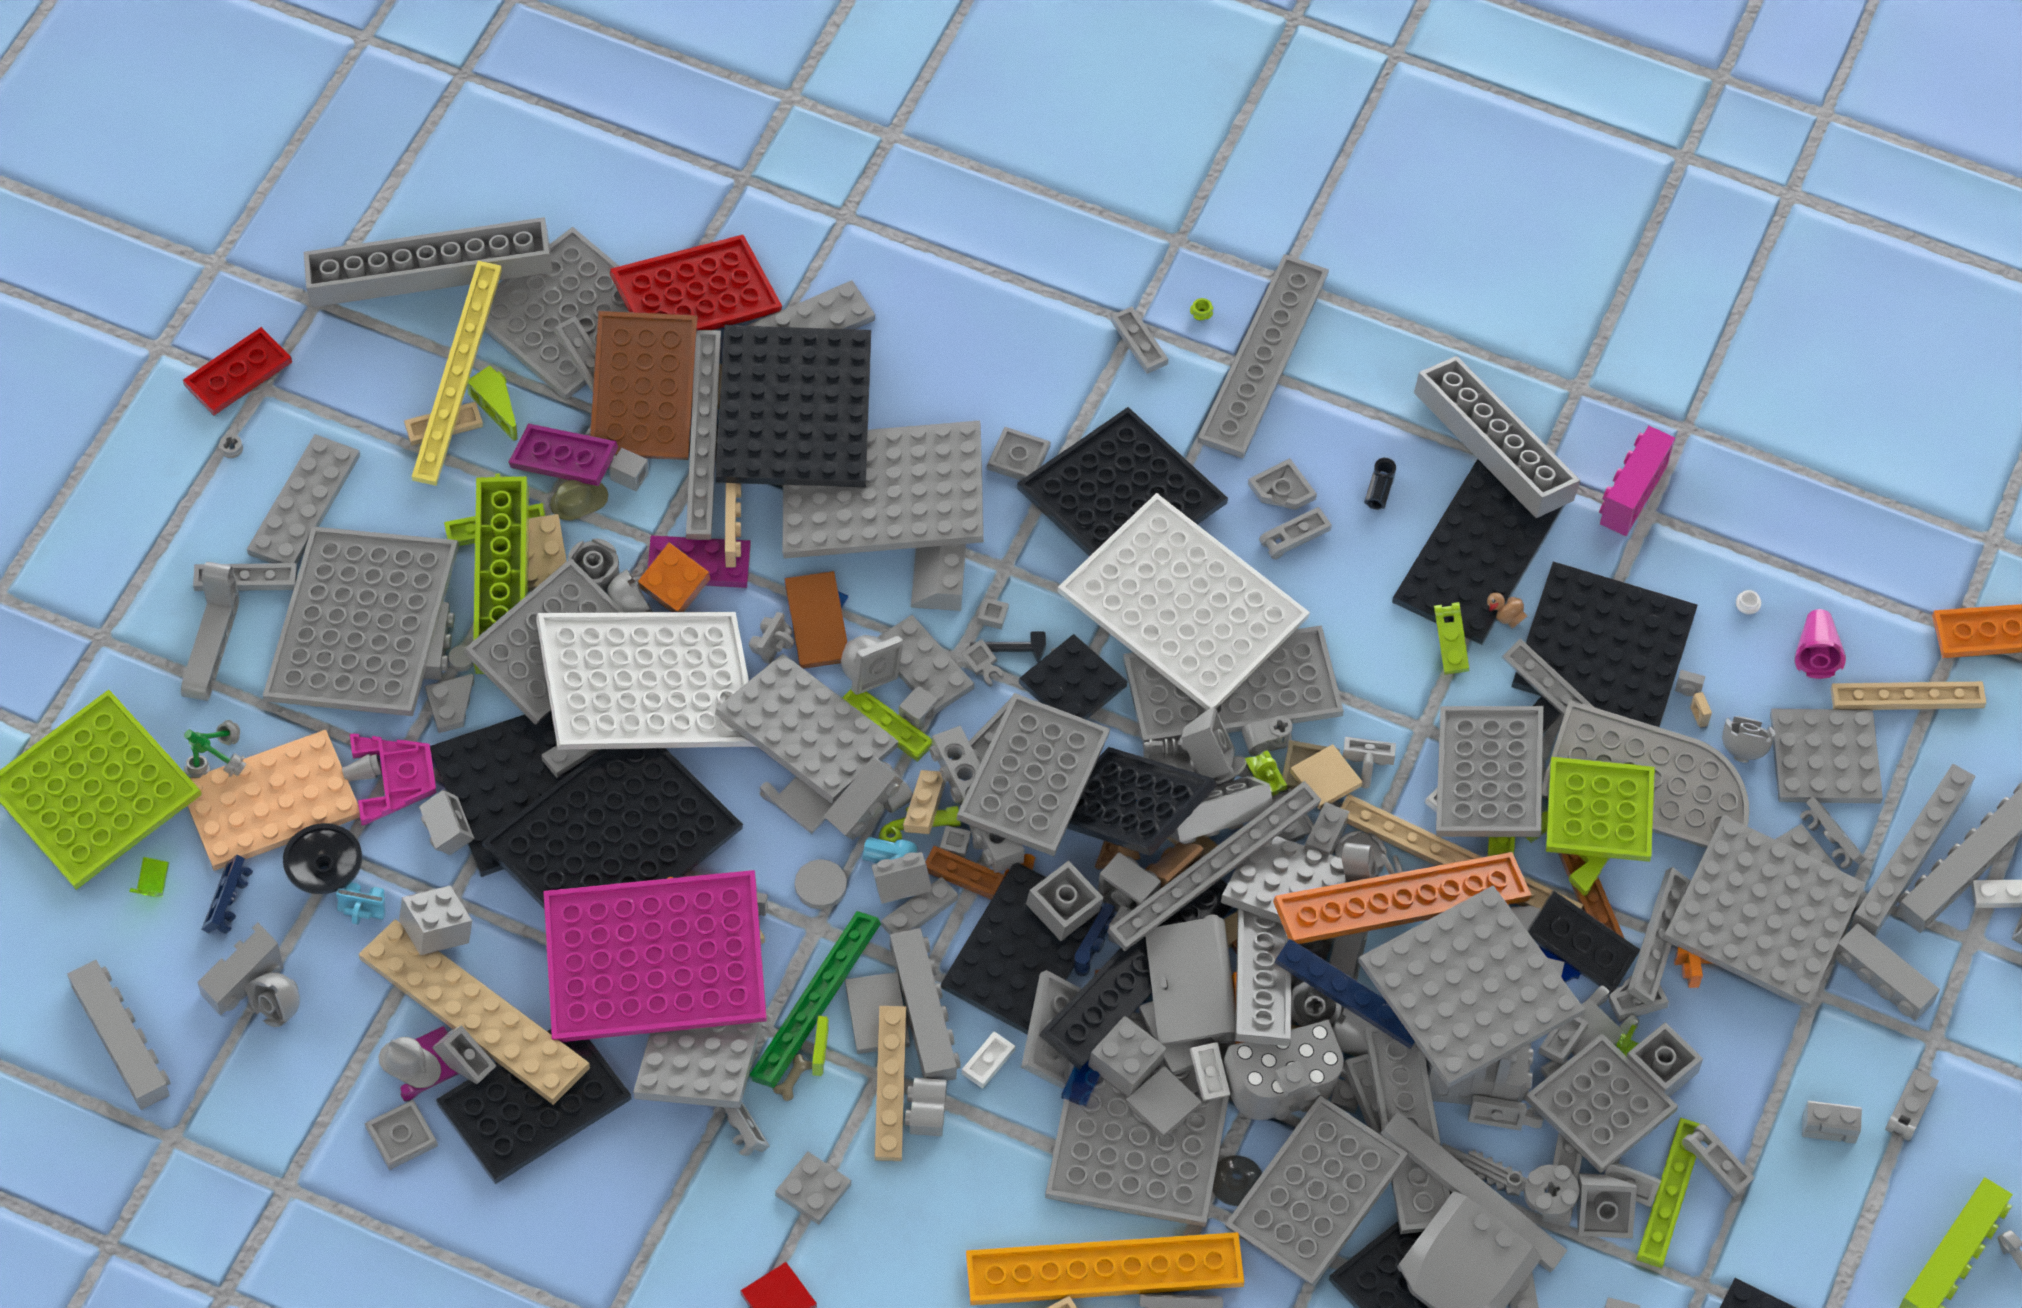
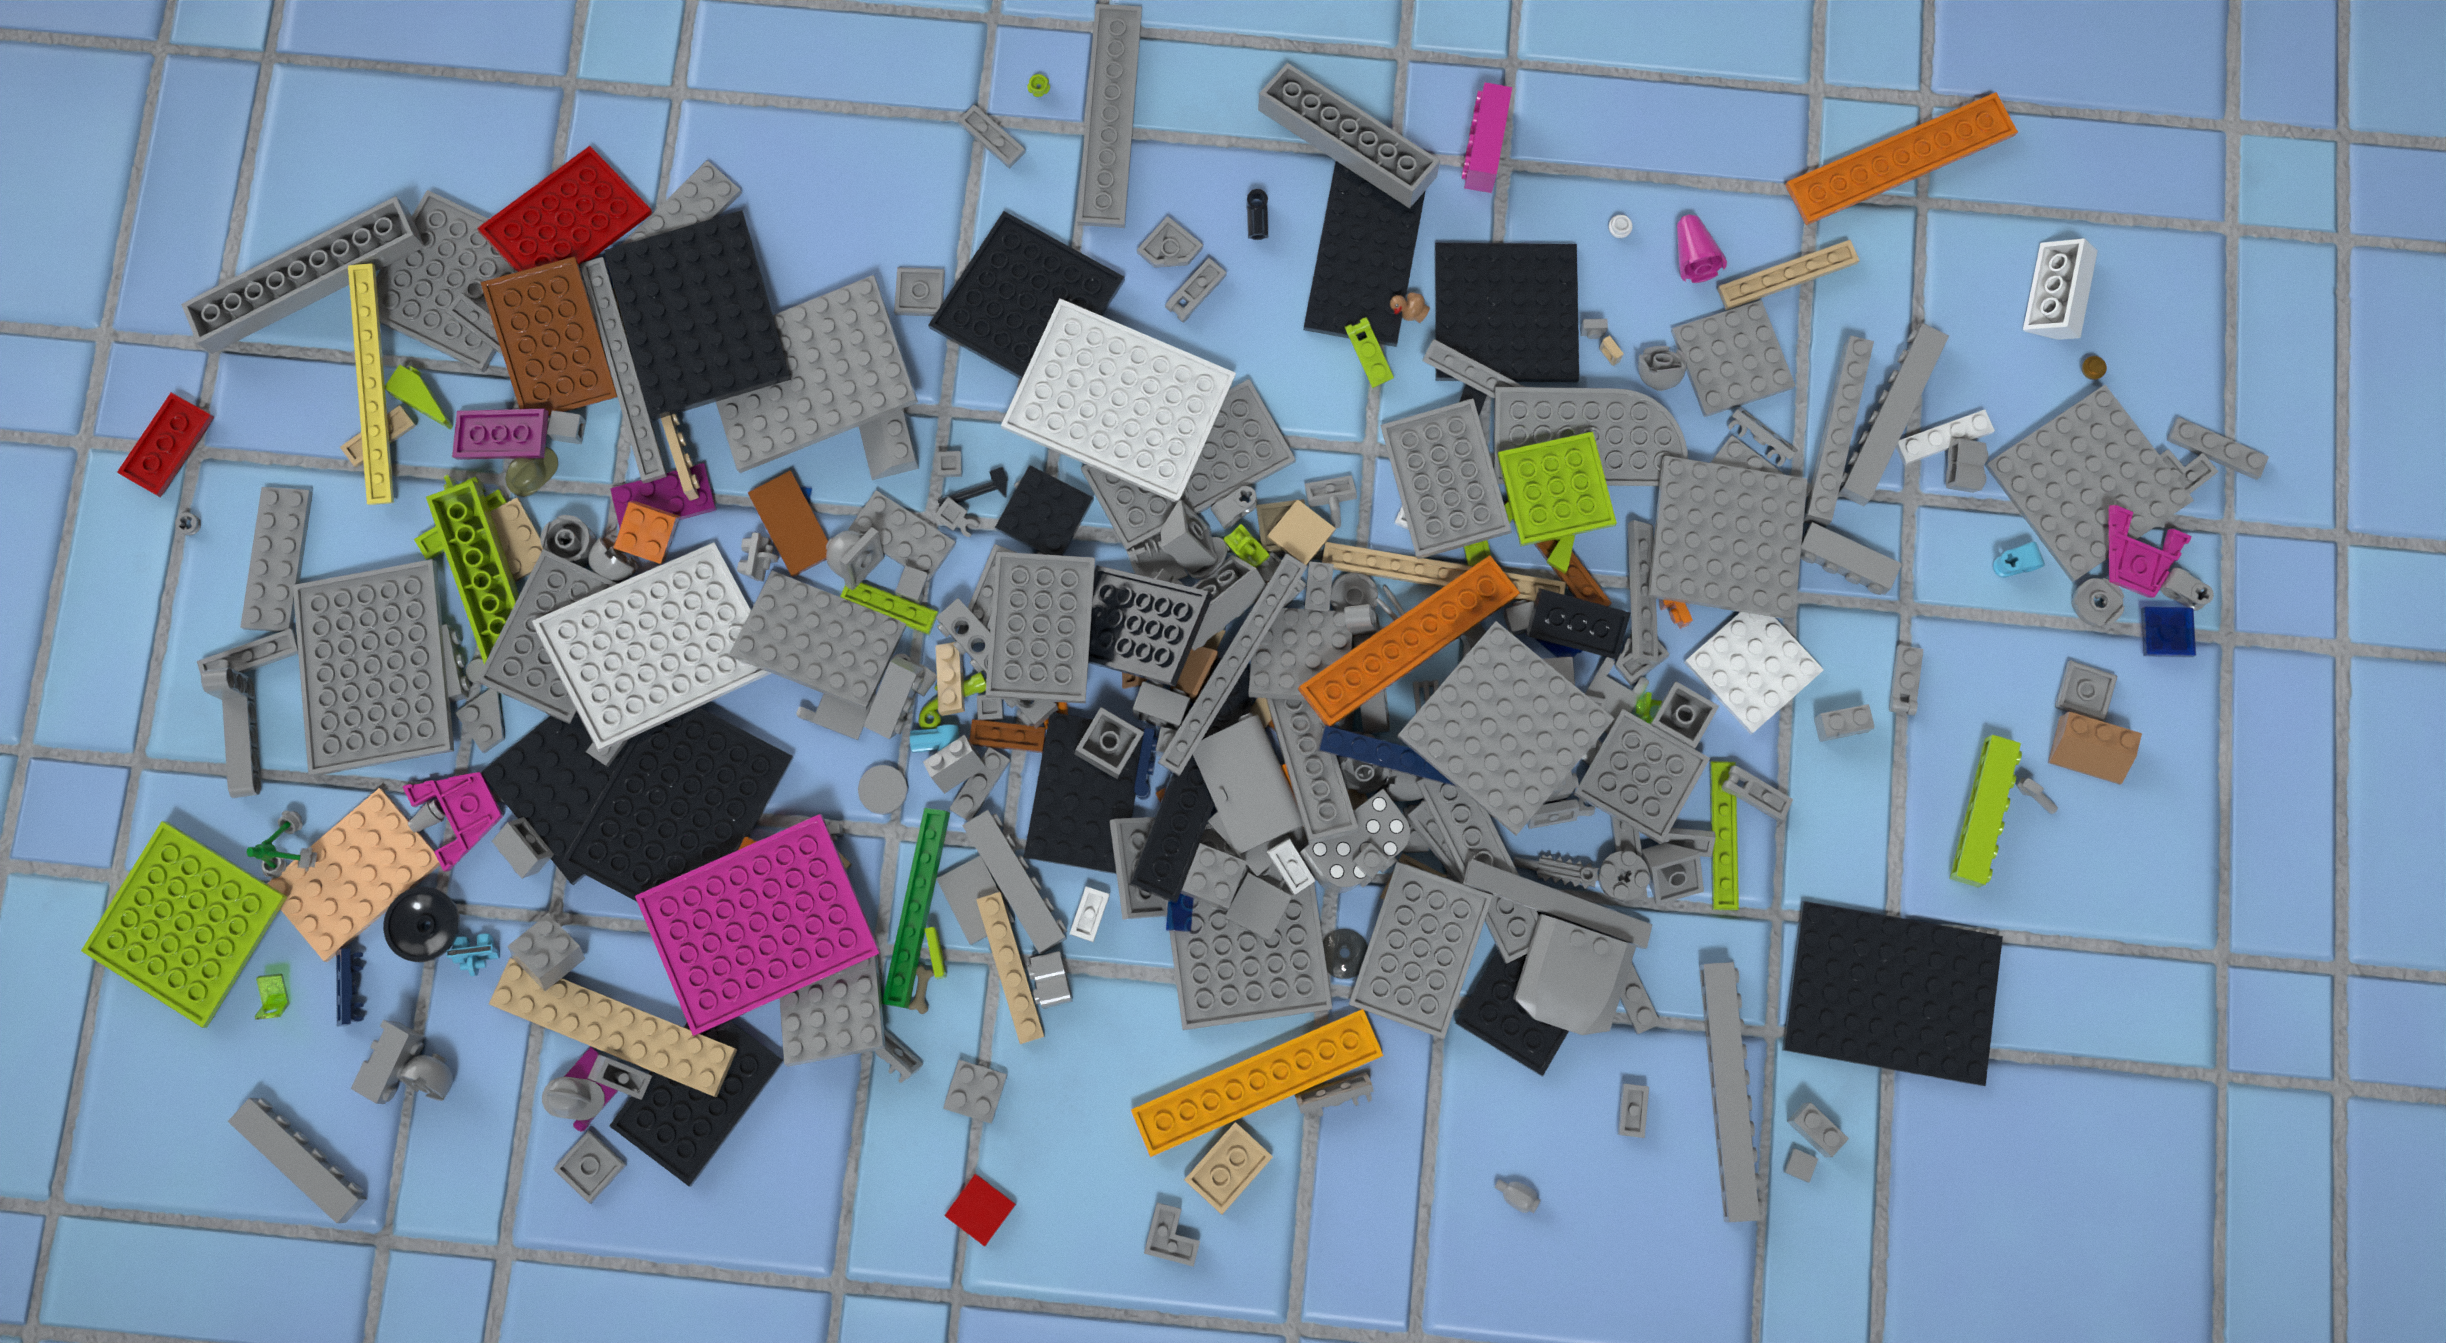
camera: 15 degrees left, 20 degrees up
(1754, 1045) = (1753, 668): none -> white plate

